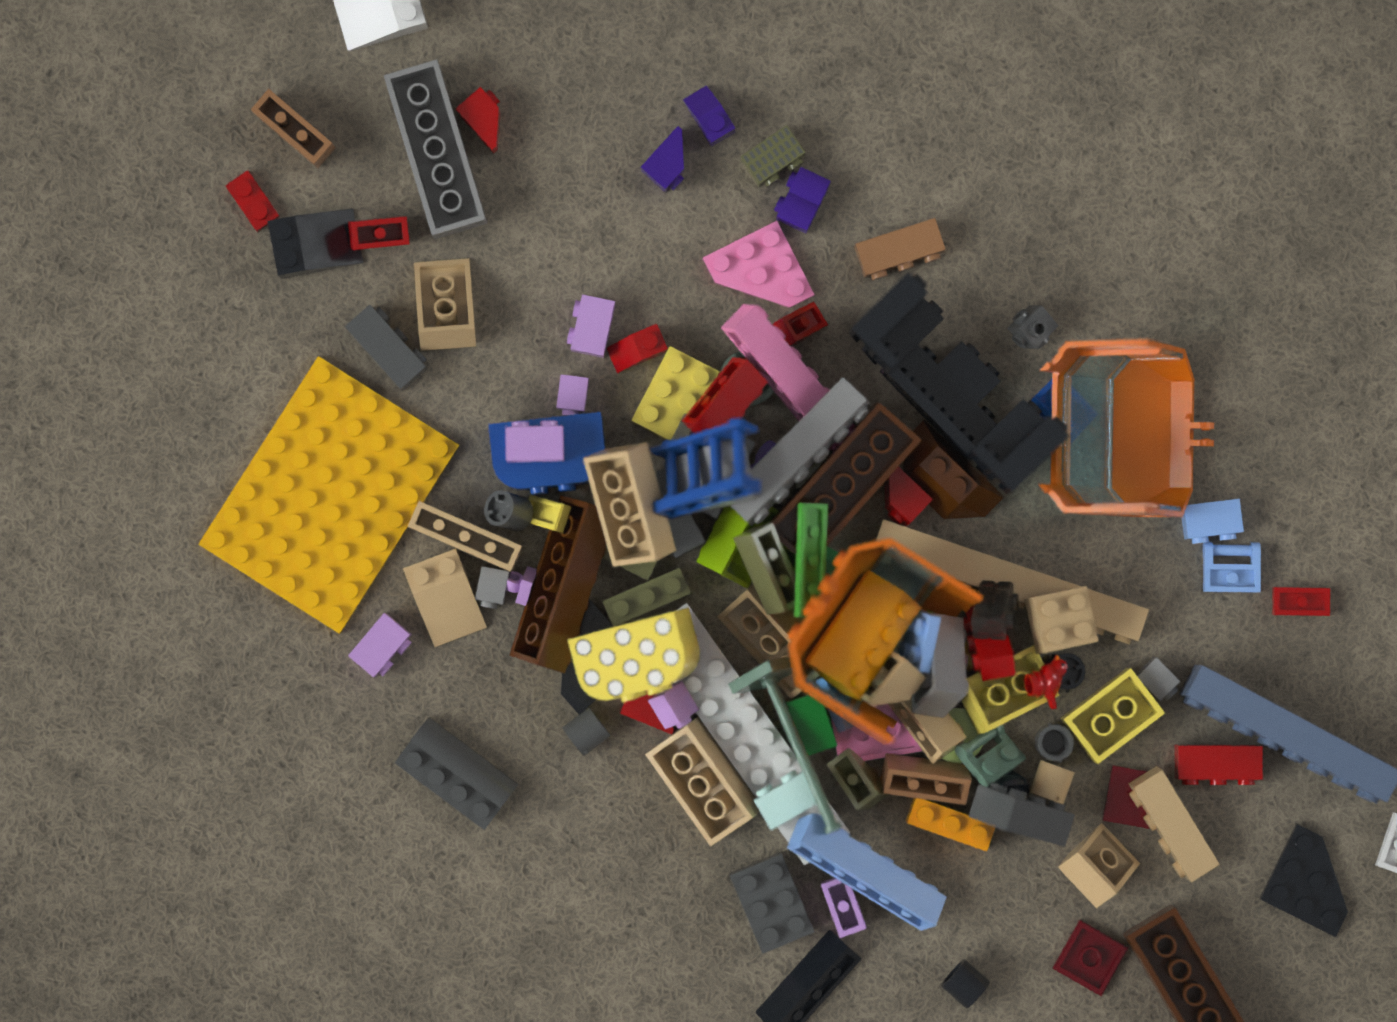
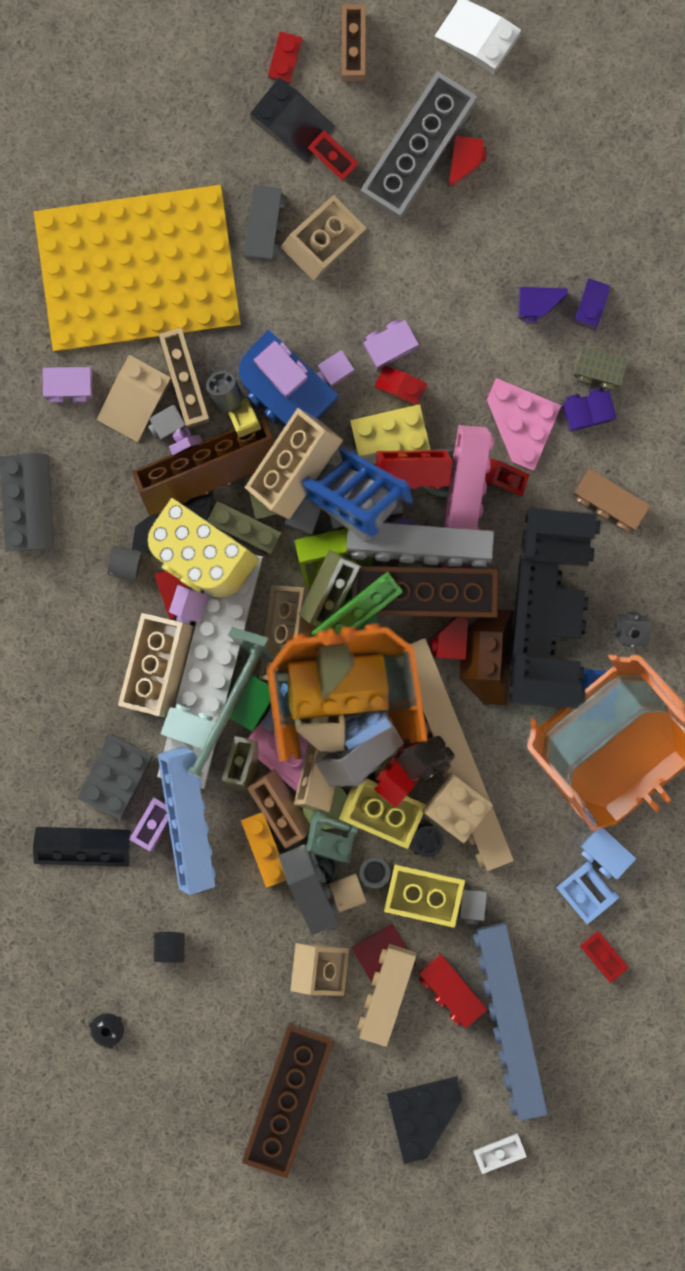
camera: 55 degrees right, 0 degrees up
(844, 625) = (332, 667): none -> olive slope
(1046, 680) = (409, 831): red animal -> none
(1090, 957) = (255, 1014): dark red tile -> none

